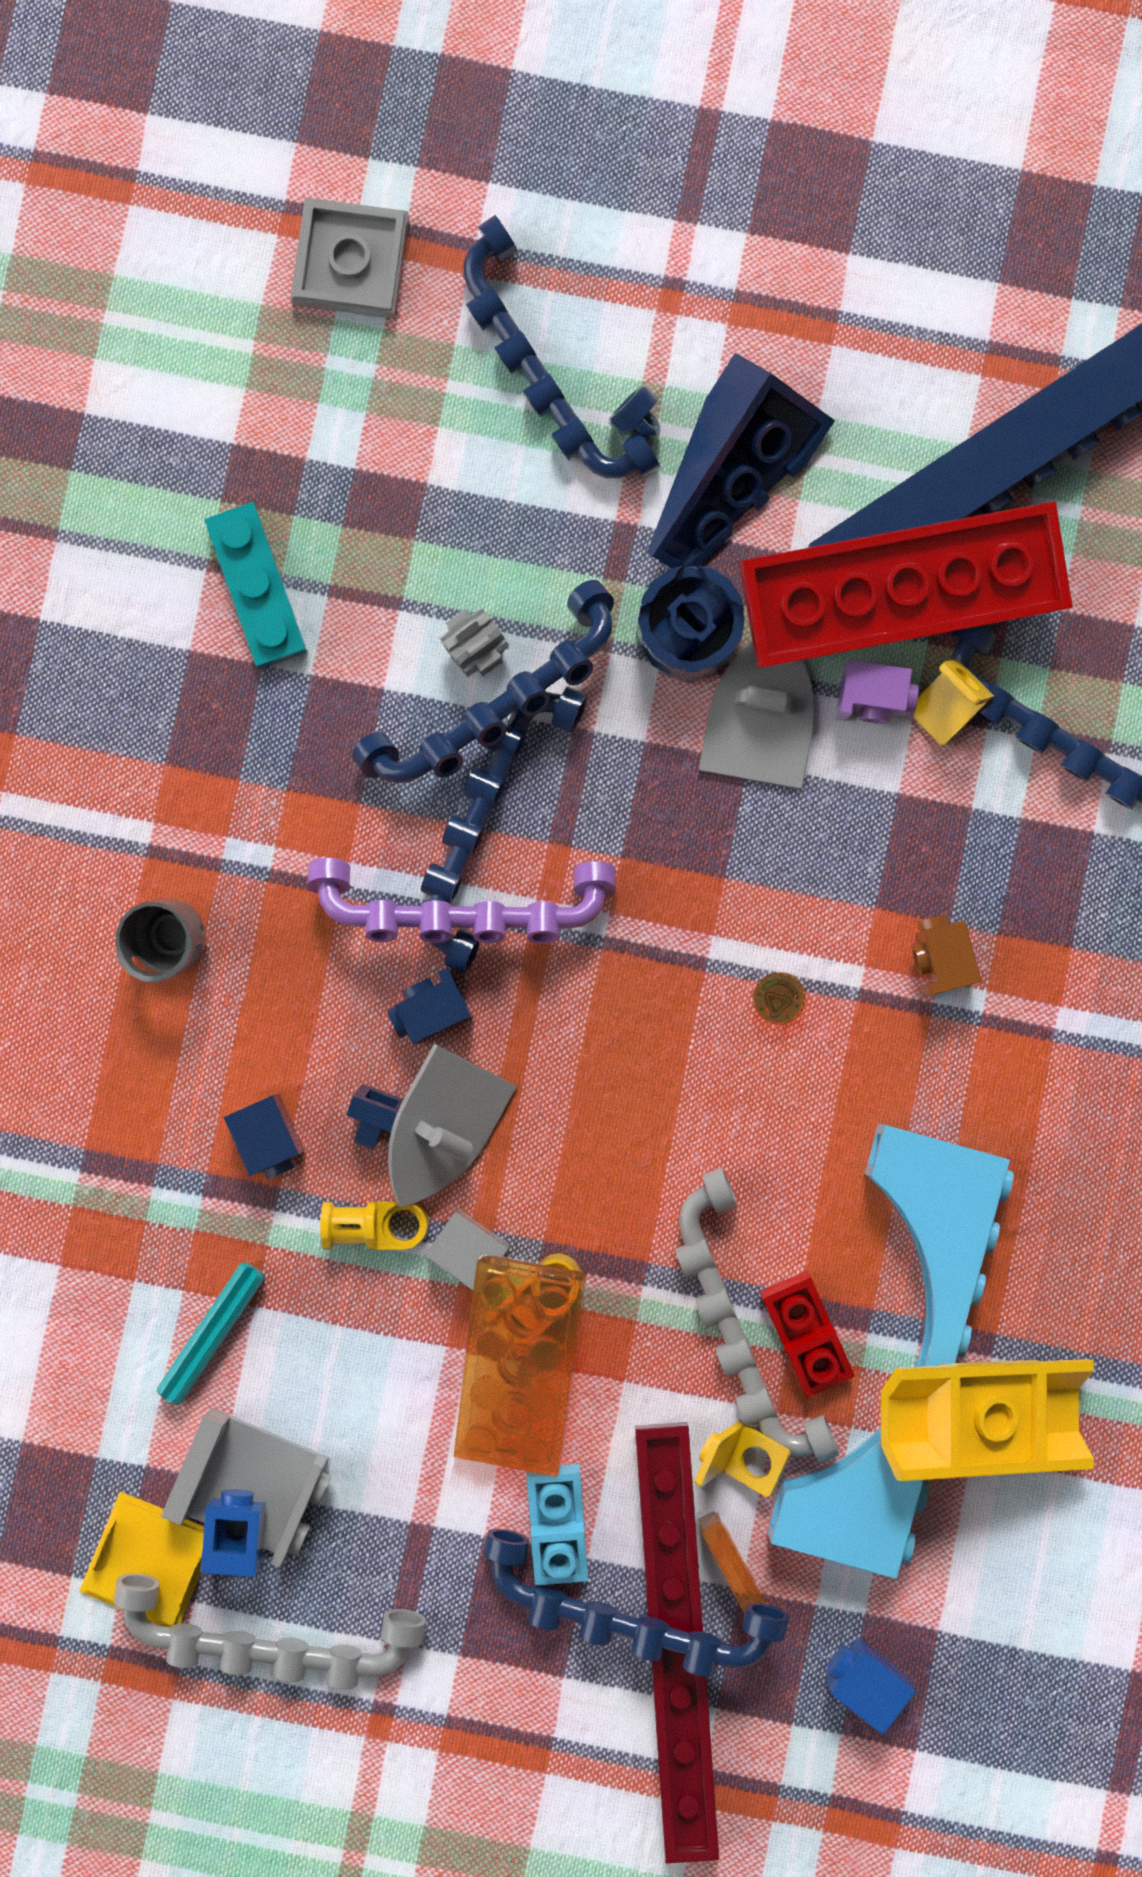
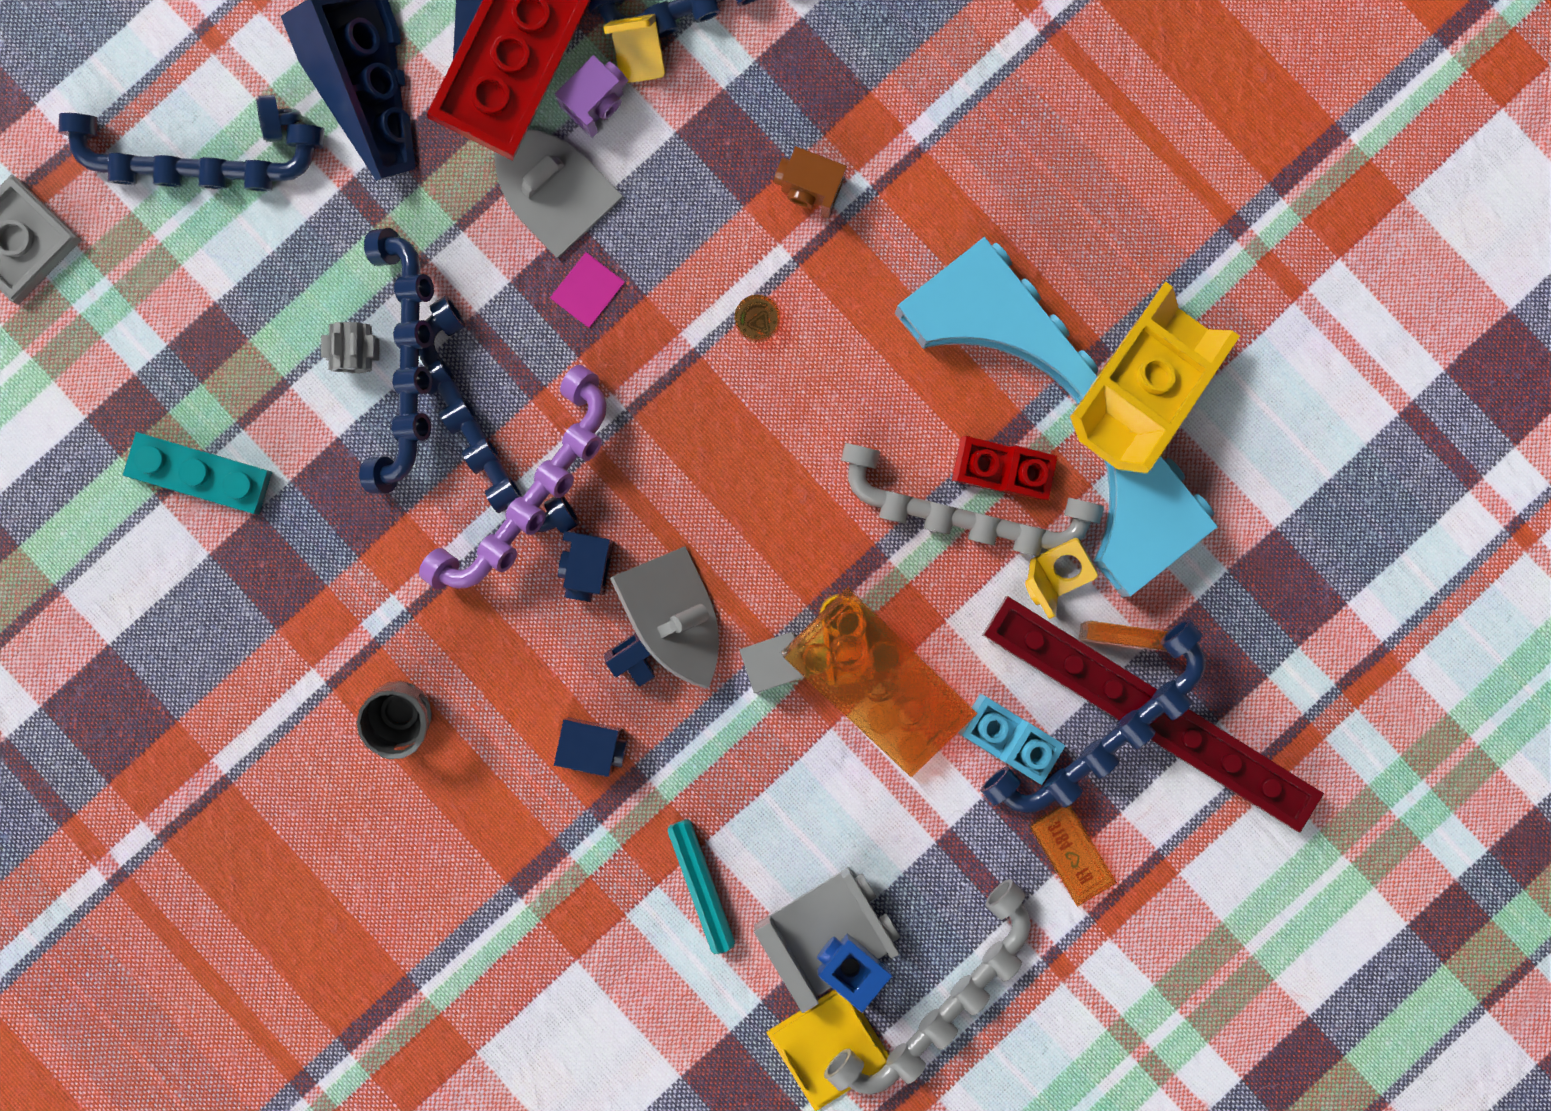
camera: 55 degrees left, 0 degrees up
(374, 1224) = (709, 715): yellow connector -> none
(490, 1660) = (1072, 854): none -> clear orange tile
(689, 819) = (587, 289): none -> dark pink sticker
(690, 622) = (447, 185): dark blue brick -> none
(868, 1684) = (1277, 601): blue brick -> none

